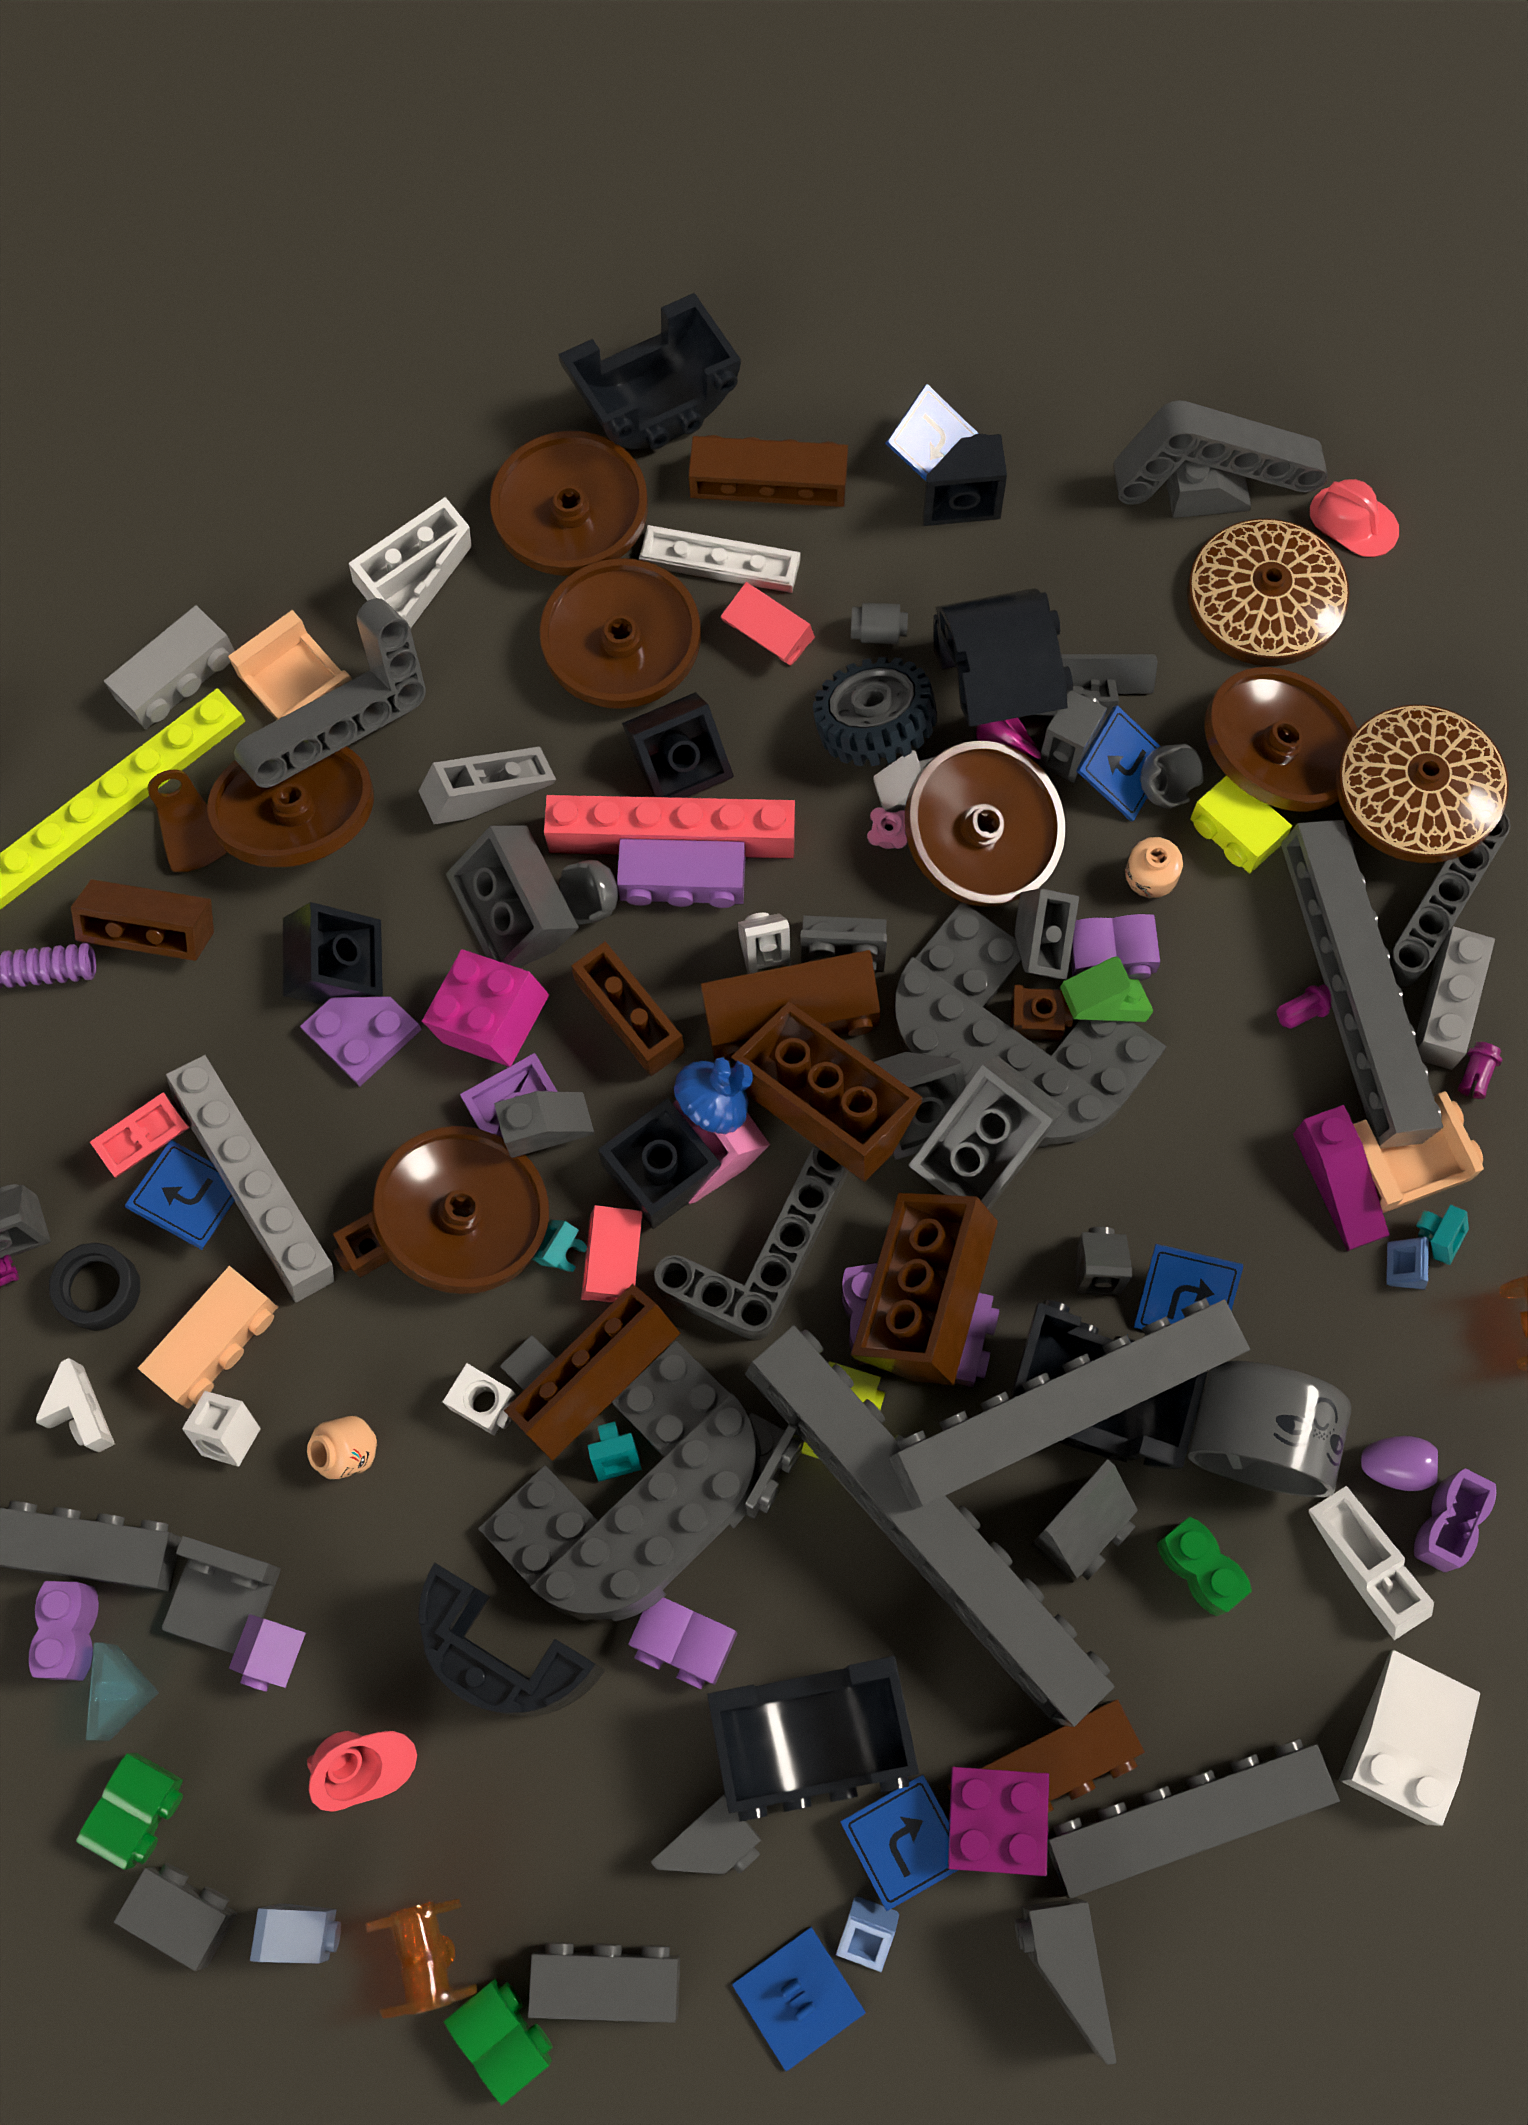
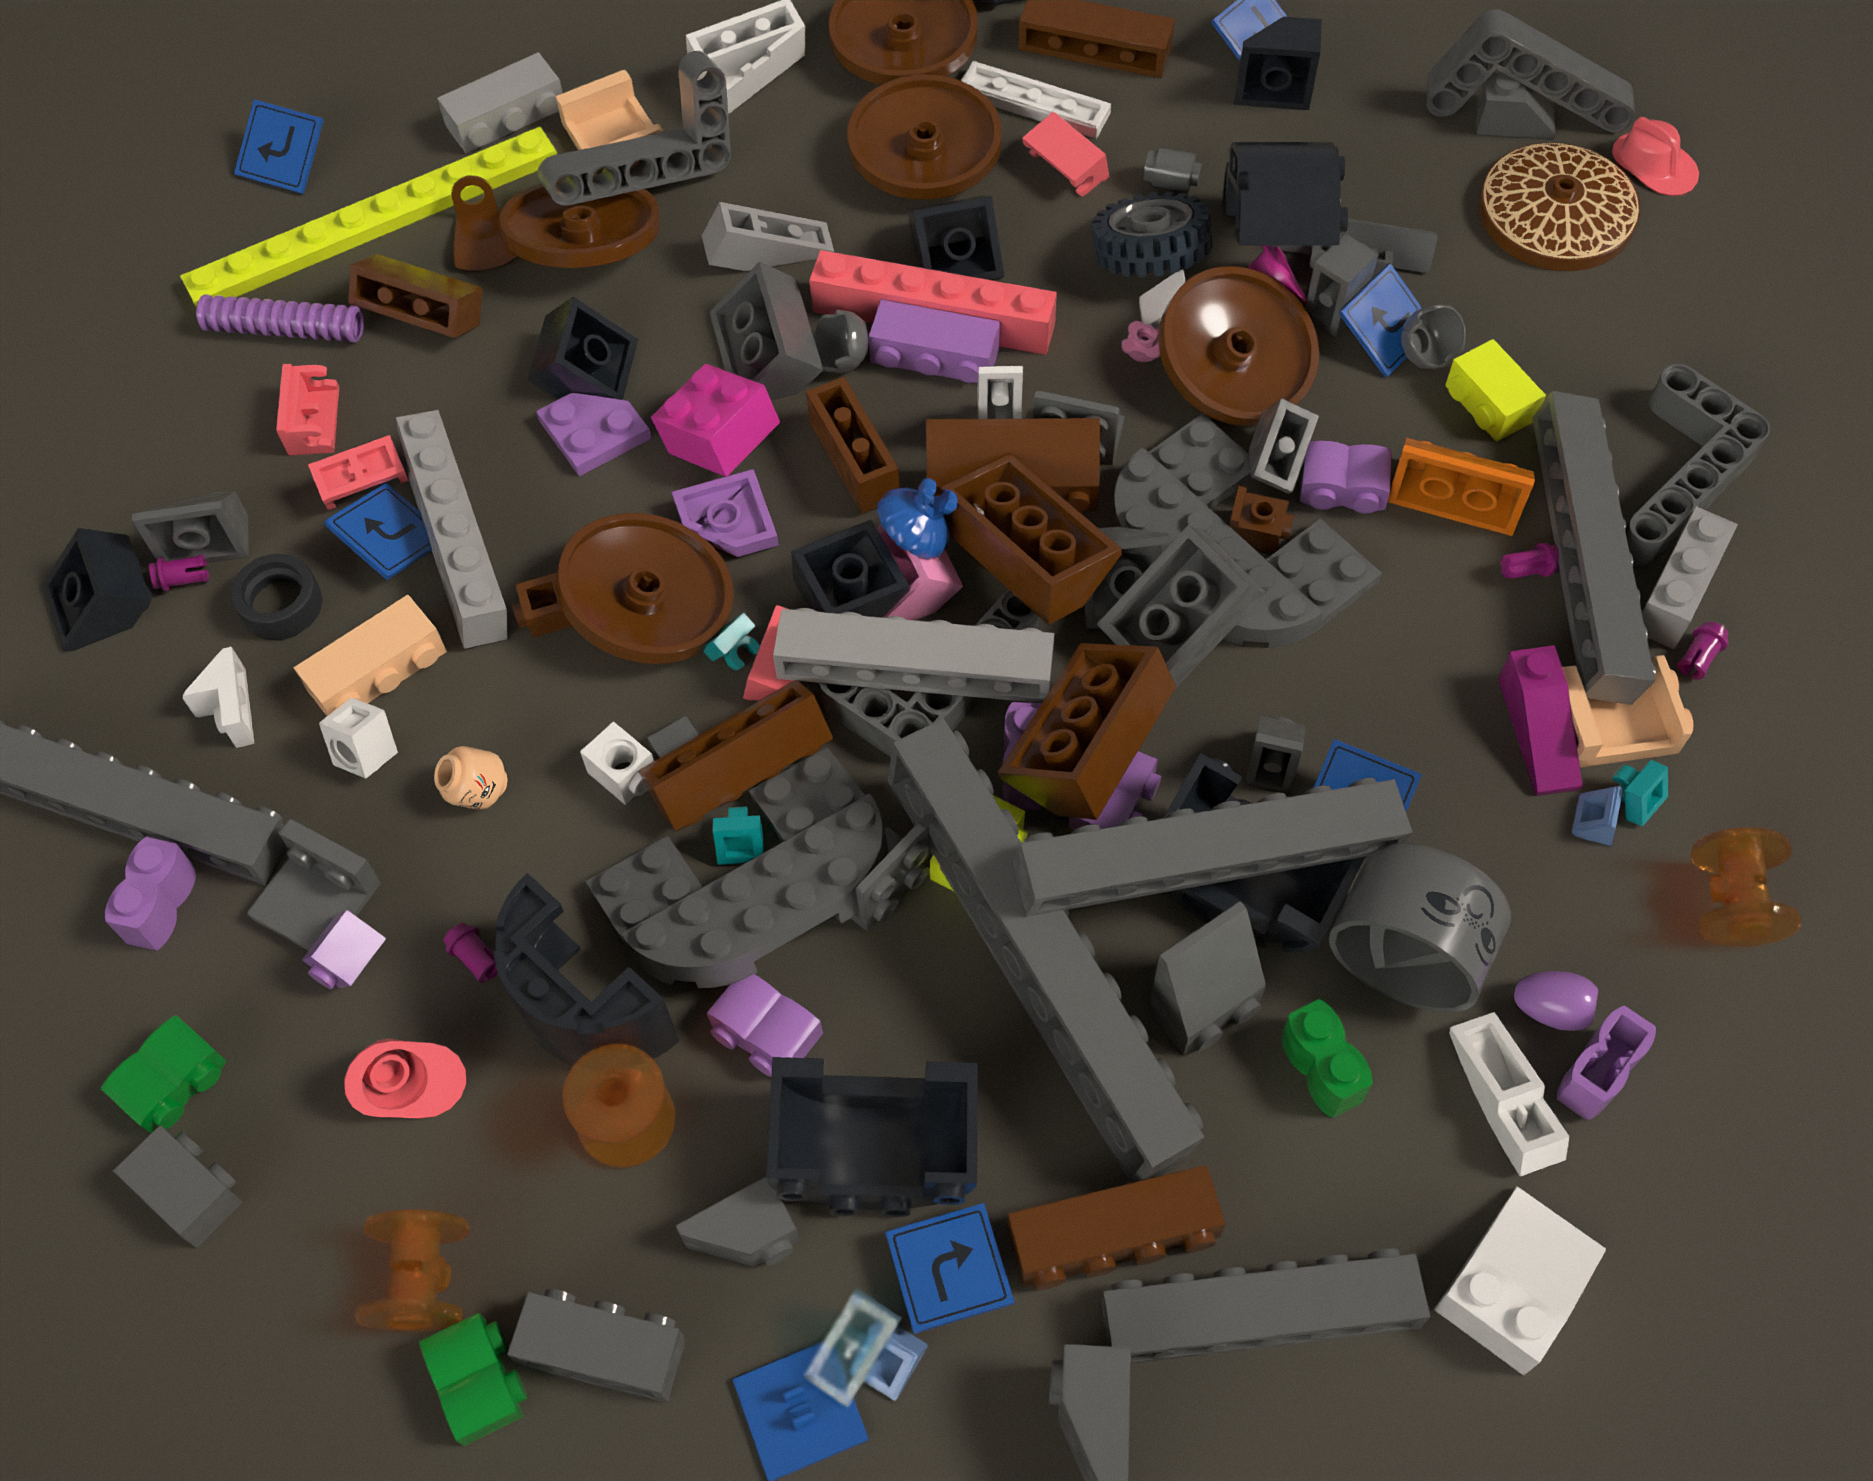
camera: 10 degrees right, 10 degrees down
(67, 1070) = (307, 410): none -> coral hinge
(116, 1692) = (182, 963): clear light blue slope -> none
(295, 1934) = (290, 1221): slope -> none
(389, 1622) = (472, 951): none -> magenta pin
(542, 1120) = (743, 521): dark grey slope -> none
(543, 1750) = (619, 1105): none -> clear orange hose
(743, 1240) = (913, 655): none -> light grey brick
(835, 1939) = (852, 1347): none -> clear light blue slope
(998, 1821) = (1052, 1258): magenta plate -> none
(1106, 994) = (1330, 510): bright green slope -> none
(1154, 867) = (1399, 412): light nougat head -> none
(1227, 936) = (1460, 486): none -> orange slope
(1279, 737) = (1551, 322): reddish brown dish -> none
(1422, 783) = (1685, 378): reddish brown dish -> none

